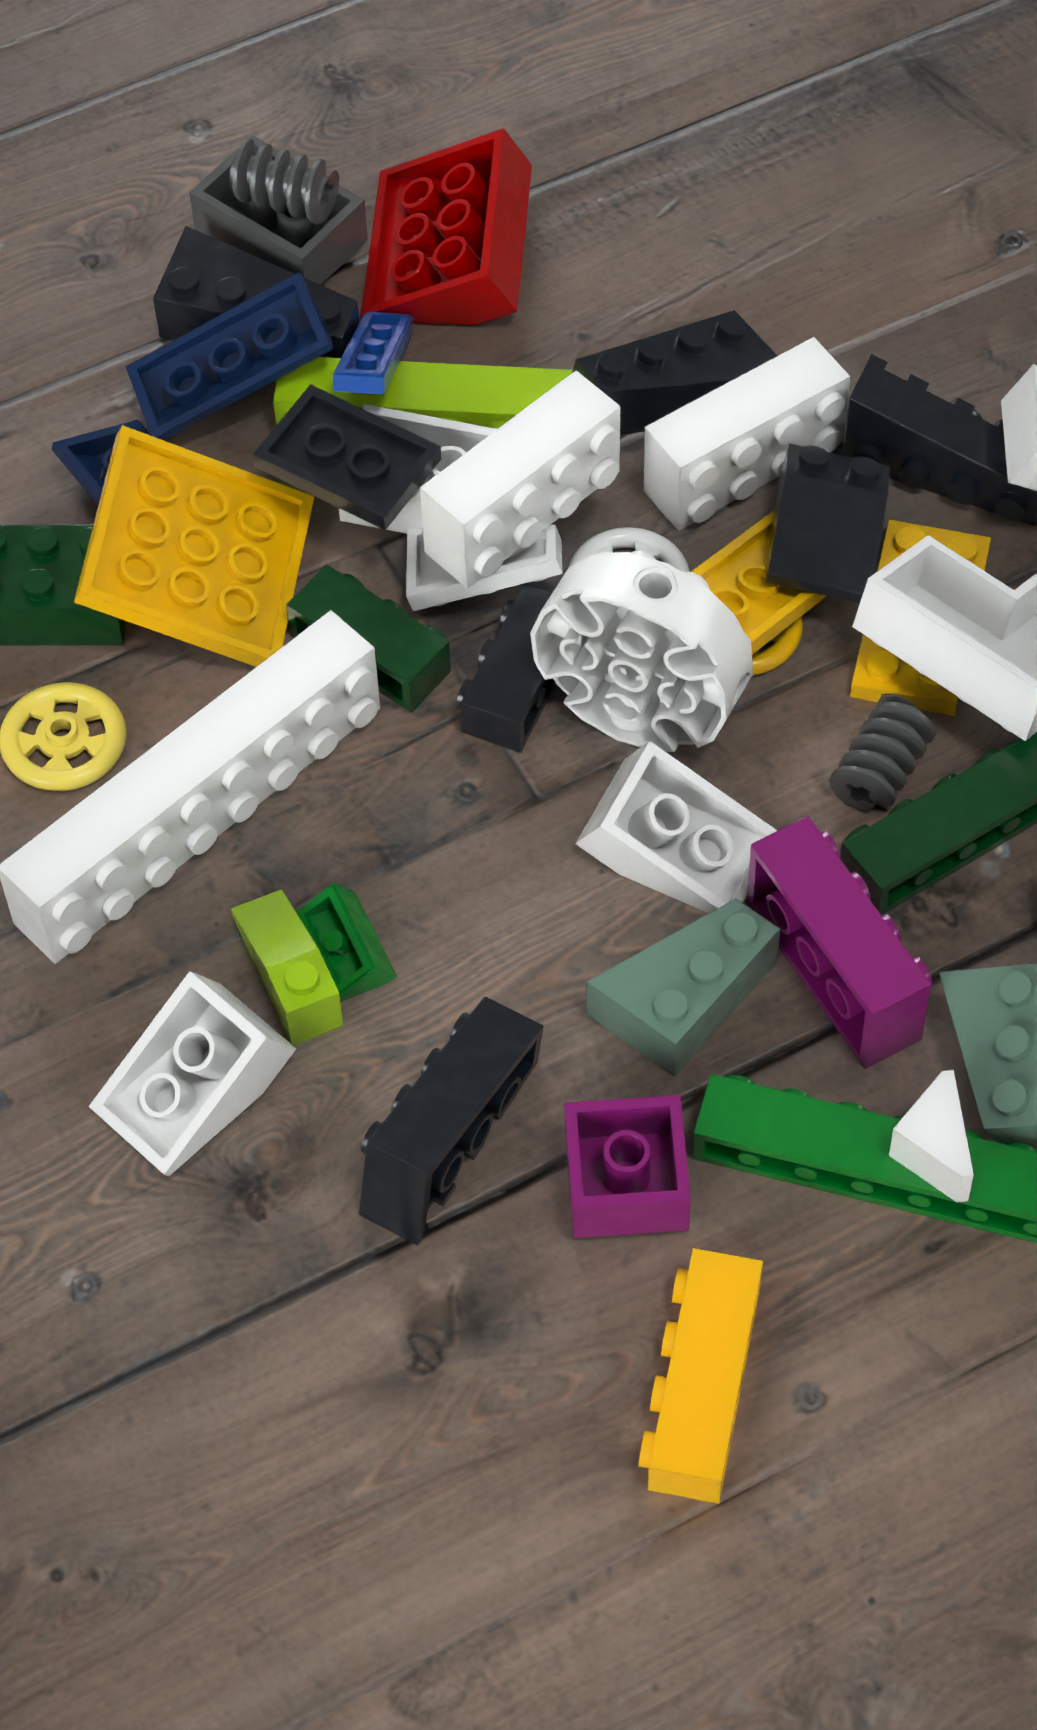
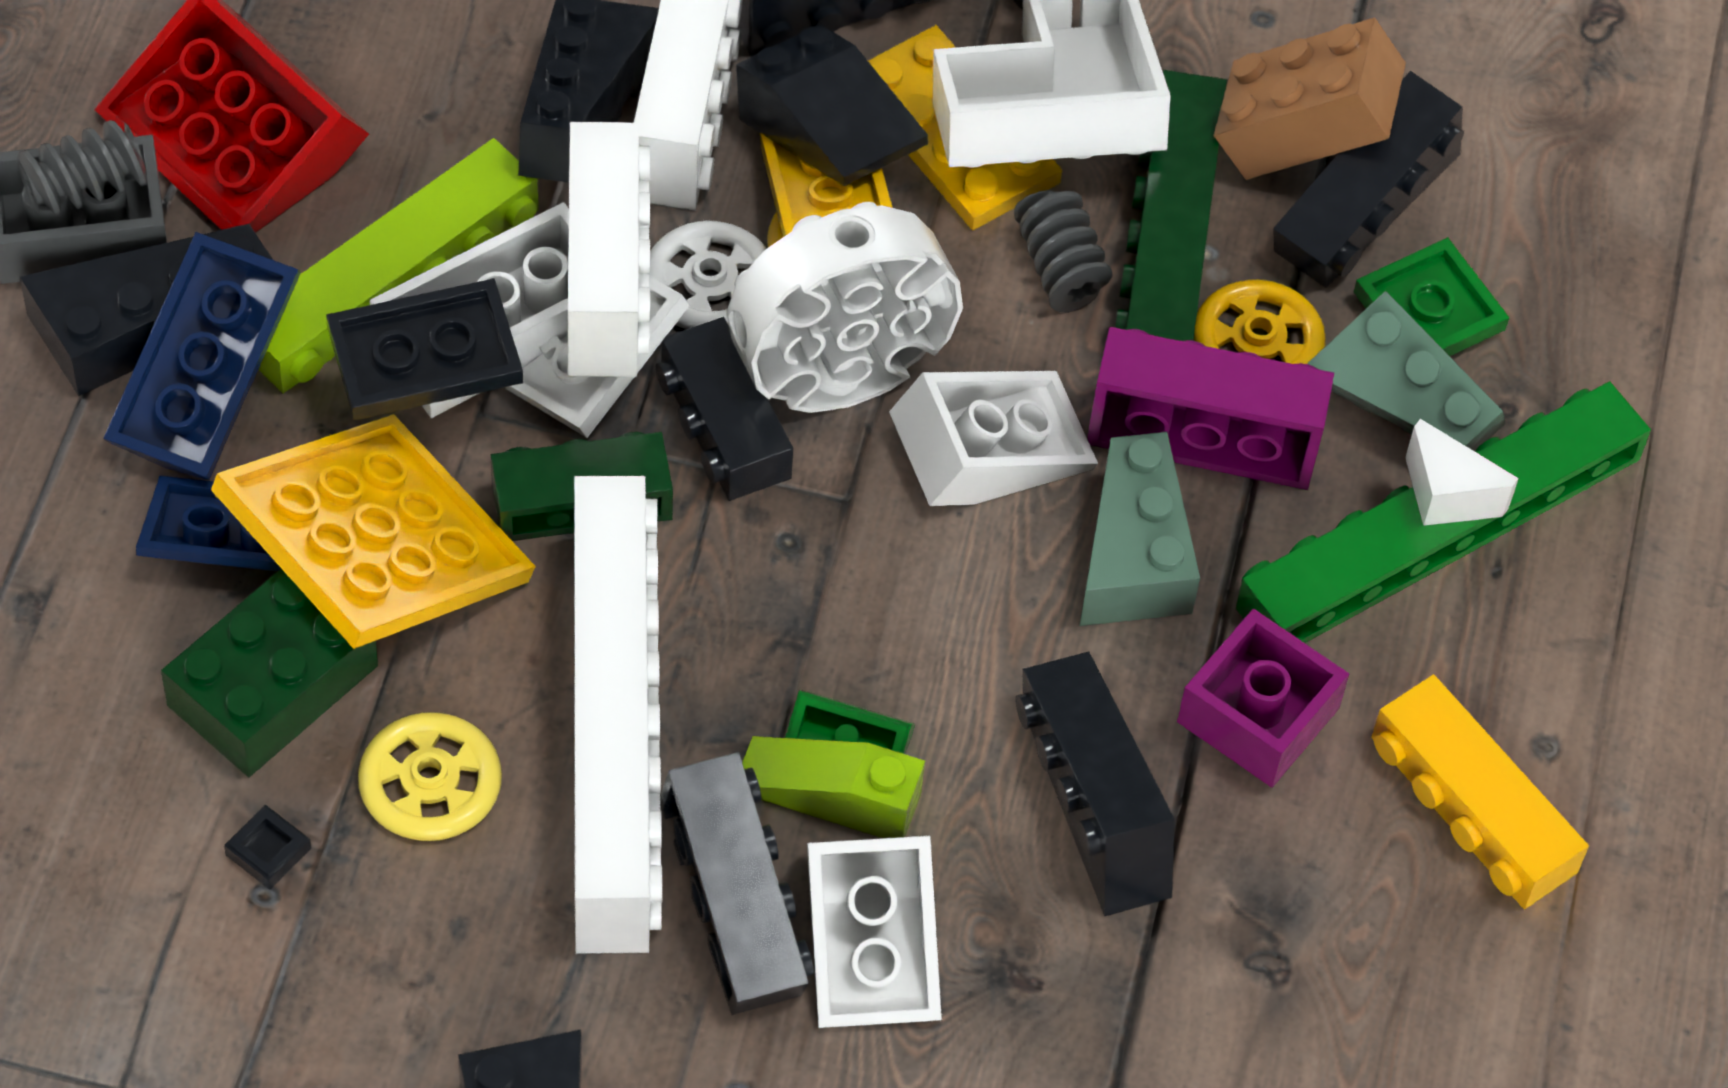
camera: 55 degrees left, 0 degrees up
(136, 960) = (736, 882): none -> wedge
(373, 353) = (325, 255): blue tile -> none
(981, 898) = (1243, 298): none -> yellow plate

